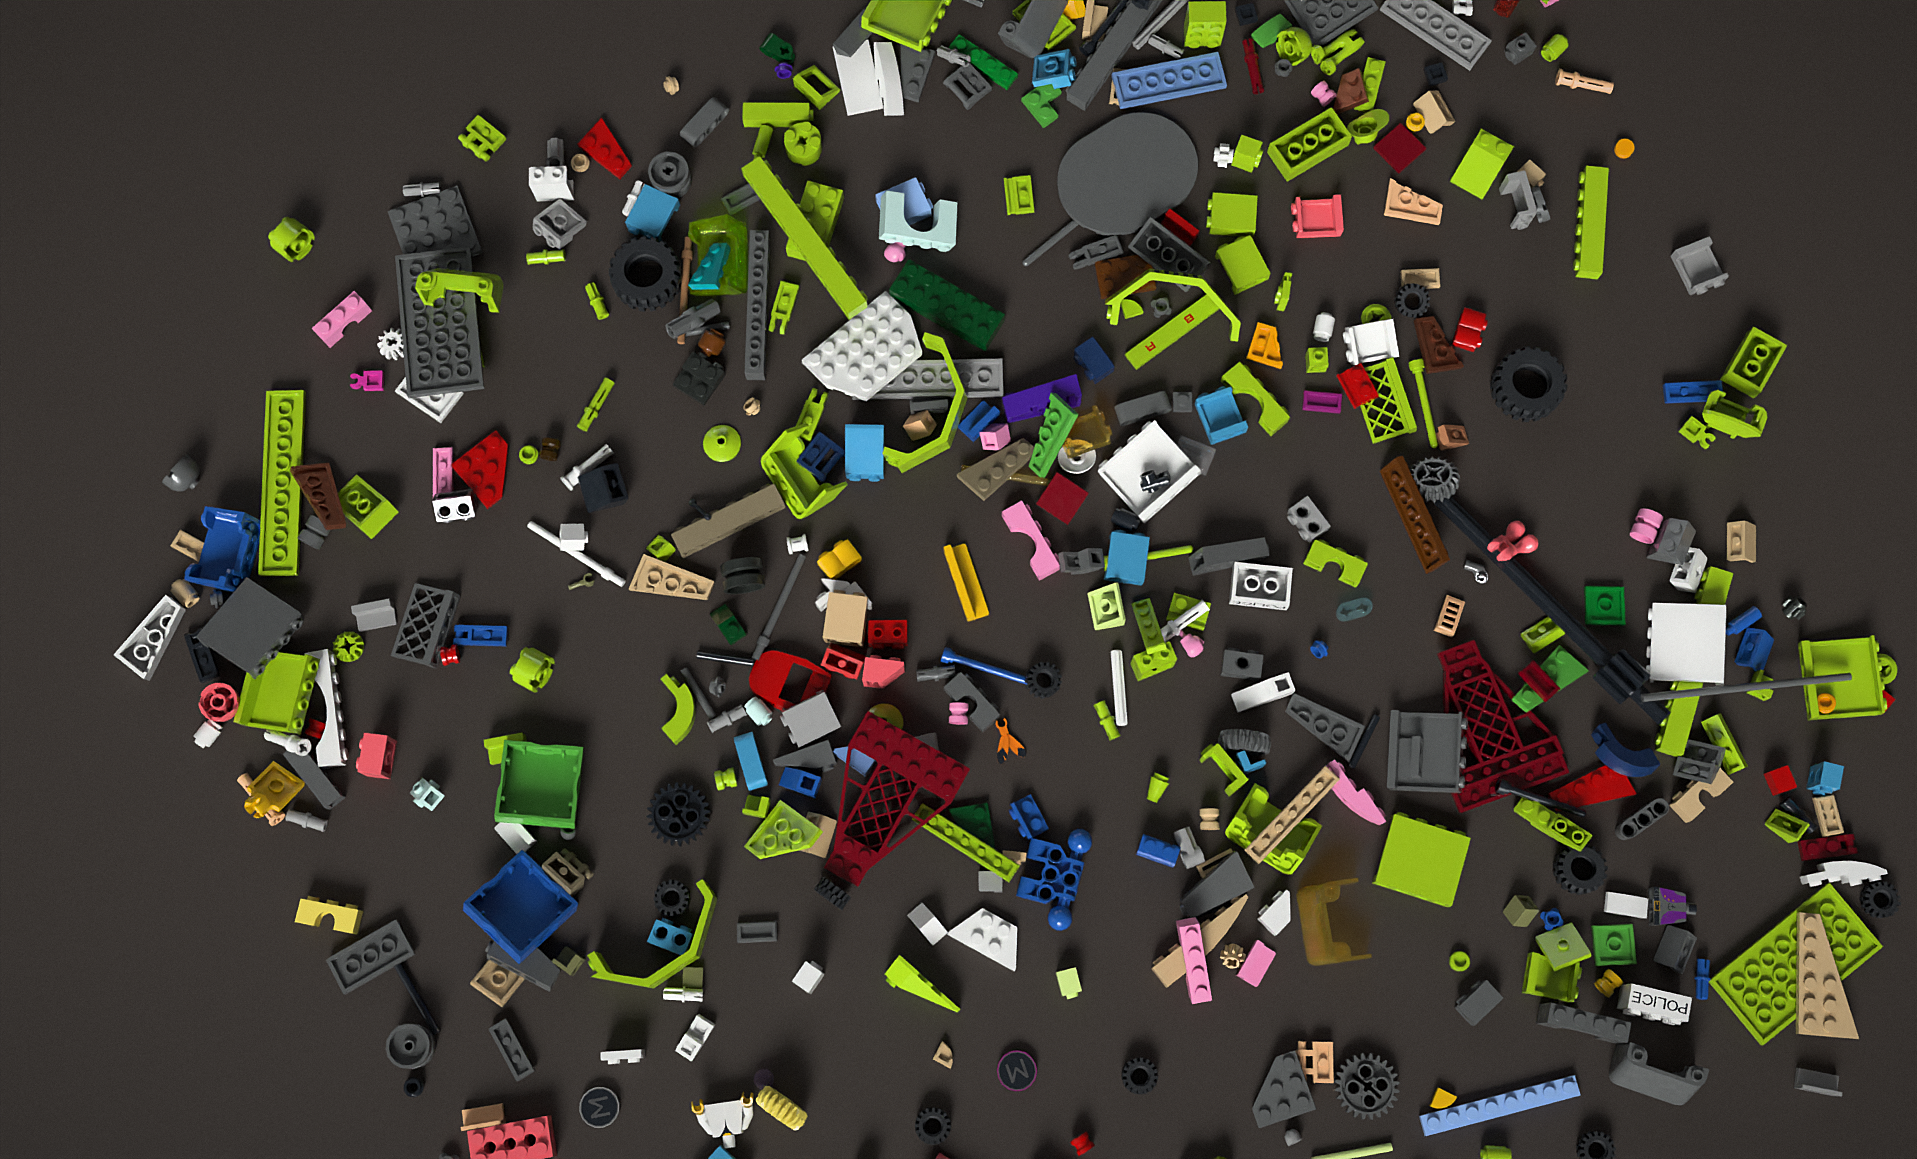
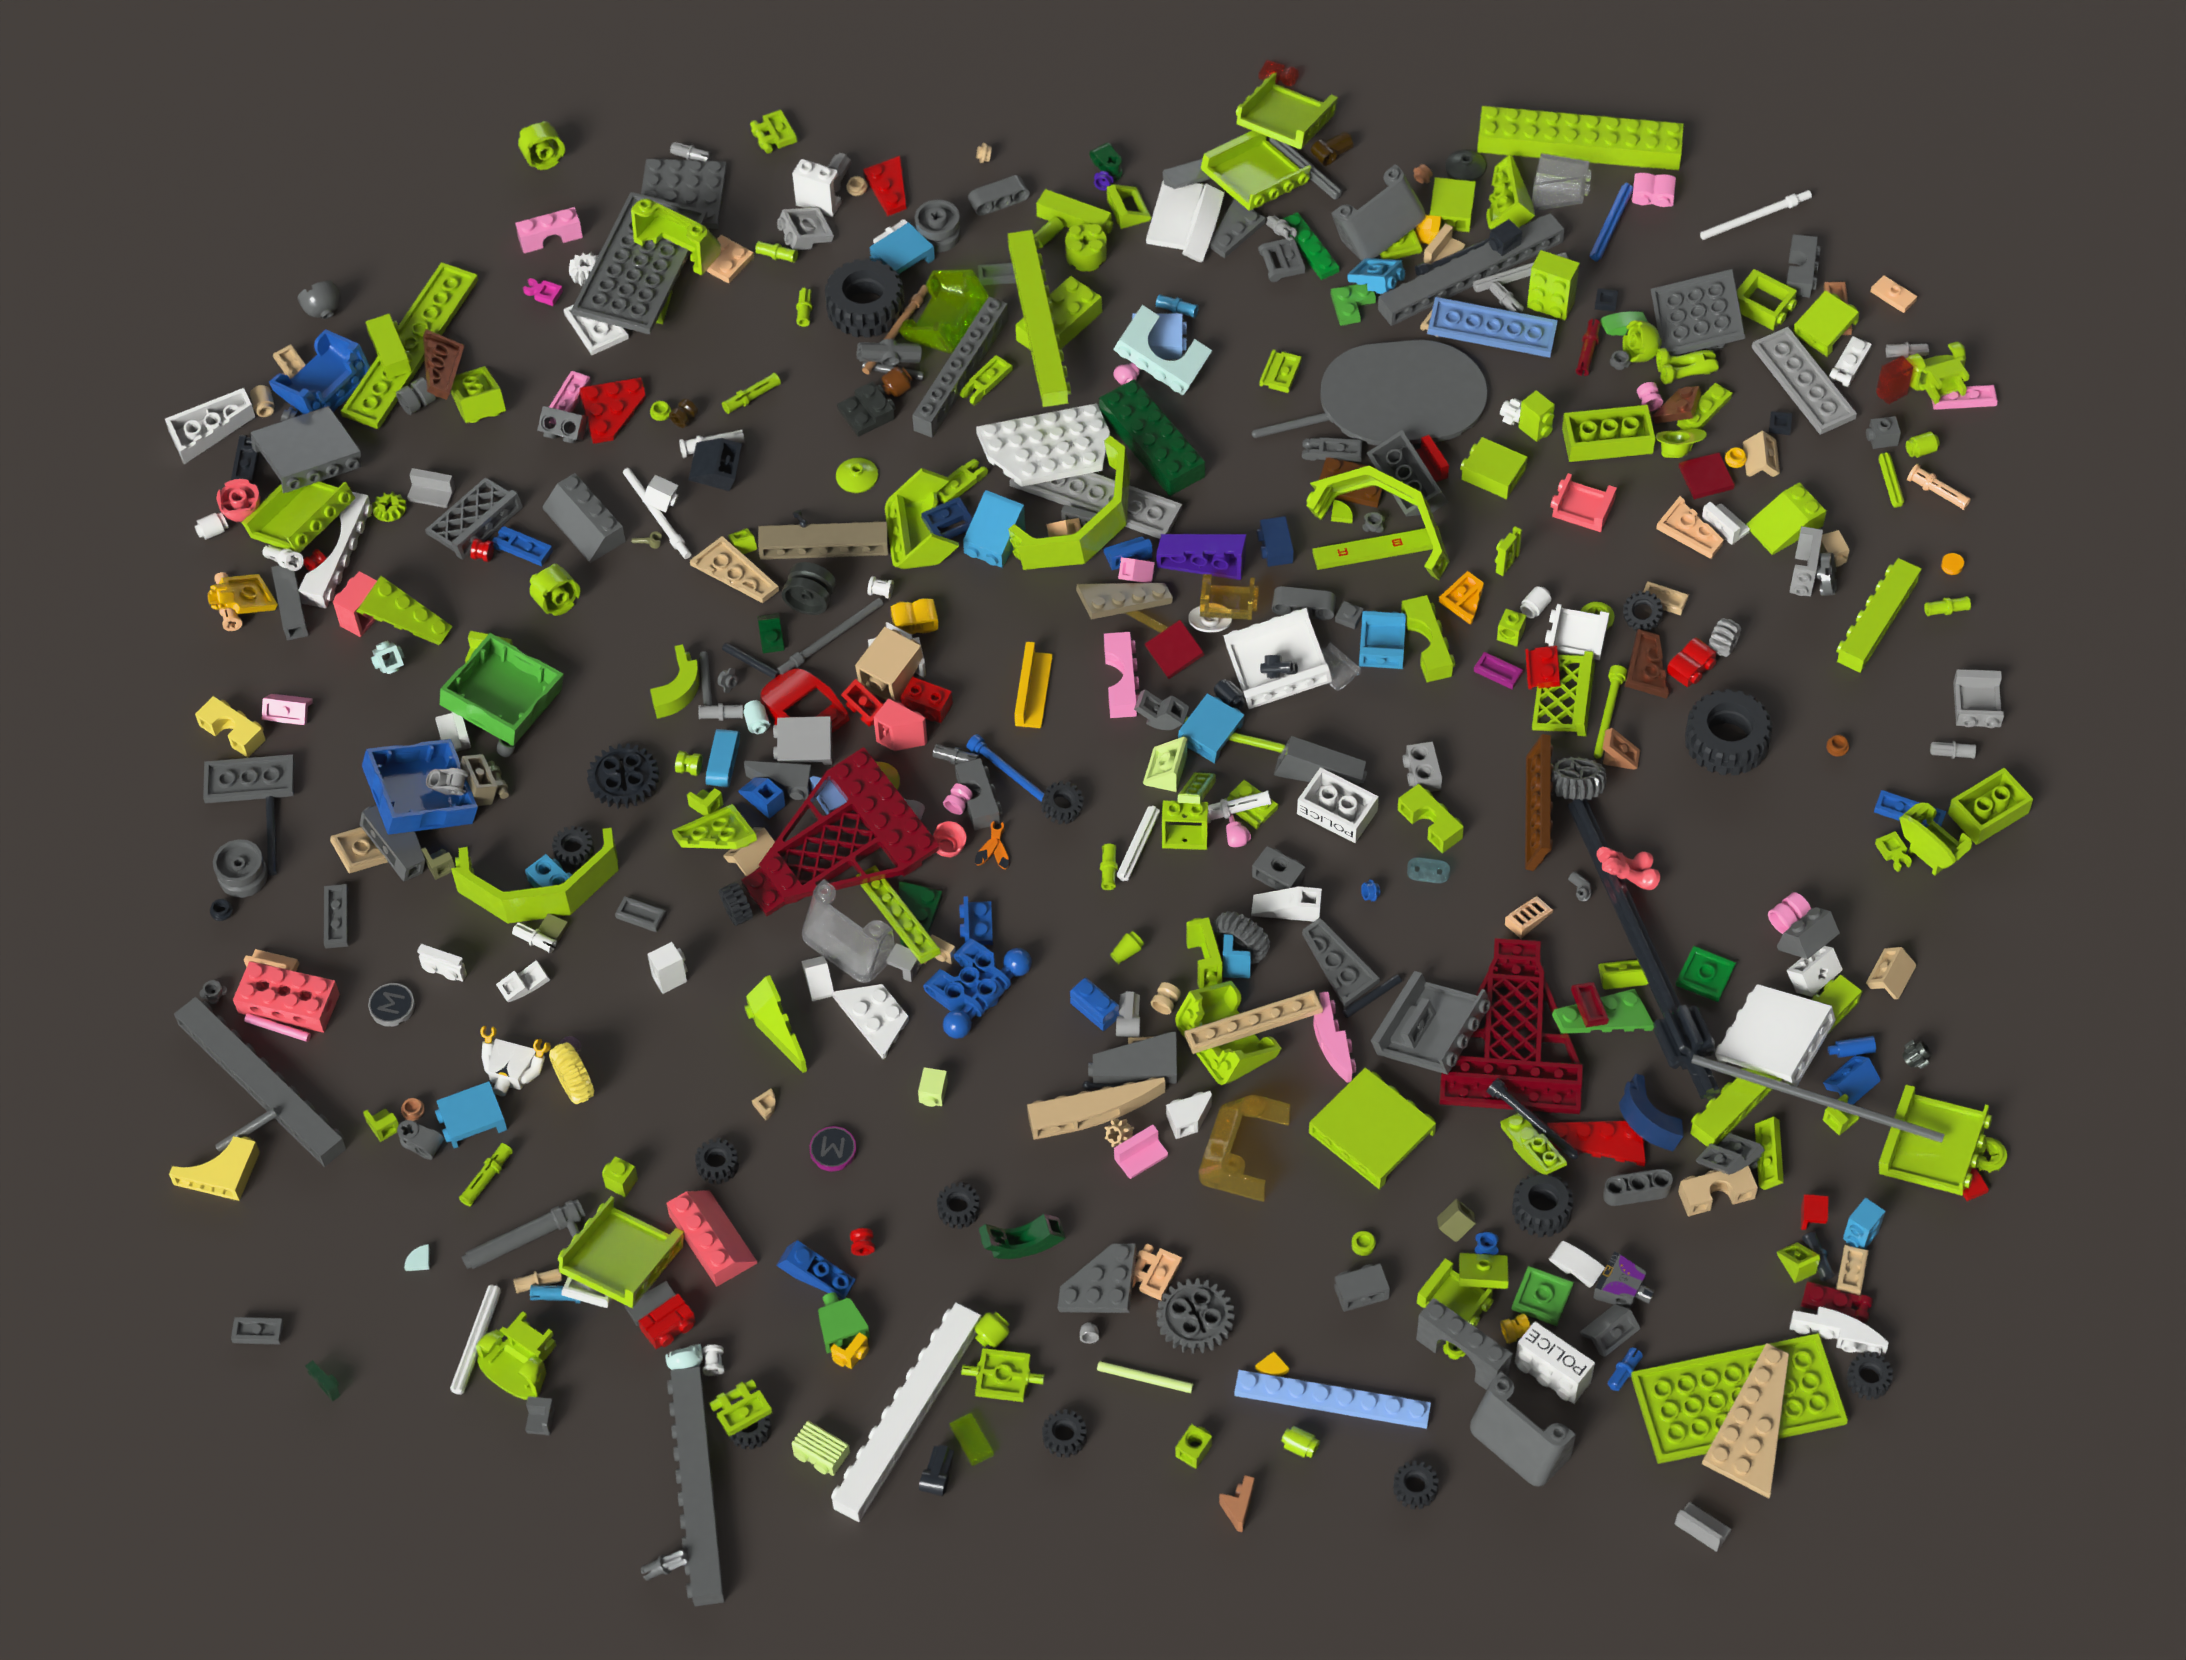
camera: 25 degrees right, 20 degrees down
(267, 496) = (389, 346): none -> lime brick
(306, 820) = (259, 637): light grey pin -> none
(365, 876) = (285, 708): none -> panel
(413, 750) = (396, 607): none -> lime wing
(512, 277) = (731, 260): none -> light nougat plate
(519, 587) = (583, 518): none -> dark grey slope
(542, 893) = (447, 781): none -> light grey piece
(711, 267) = (931, 313): teal wing -> none
(752, 406) = (904, 452): tan plate -> none
(904, 168) = (1177, 305): none -> dark azure pin
(931, 889) = (842, 941): none -> clear windscreen
(971, 754) = (950, 838): none -> coral hair
(1056, 428) = (1192, 583): bright green wing -> none
(1194, 959) = (1072, 1113): bright pink arch -> none
(1205, 1083) = (1024, 1240): none -> dark green arch
(1243, 263) = (1480, 515): lime panel -> none
(1434, 186) = (1724, 522): none -> white panel
(1486, 297) = (1725, 637): none -> light grey gear
(1543, 90) = (1891, 480): none -> lime axle
(1612, 356) = (1837, 745): none -> dark orange plate
(1638, 190) = (1947, 606): none -> lime pin
(1700, 320) = (1953, 749): none -> light grey axle
(1826, 702) = (1904, 1158): light orange tile -> none

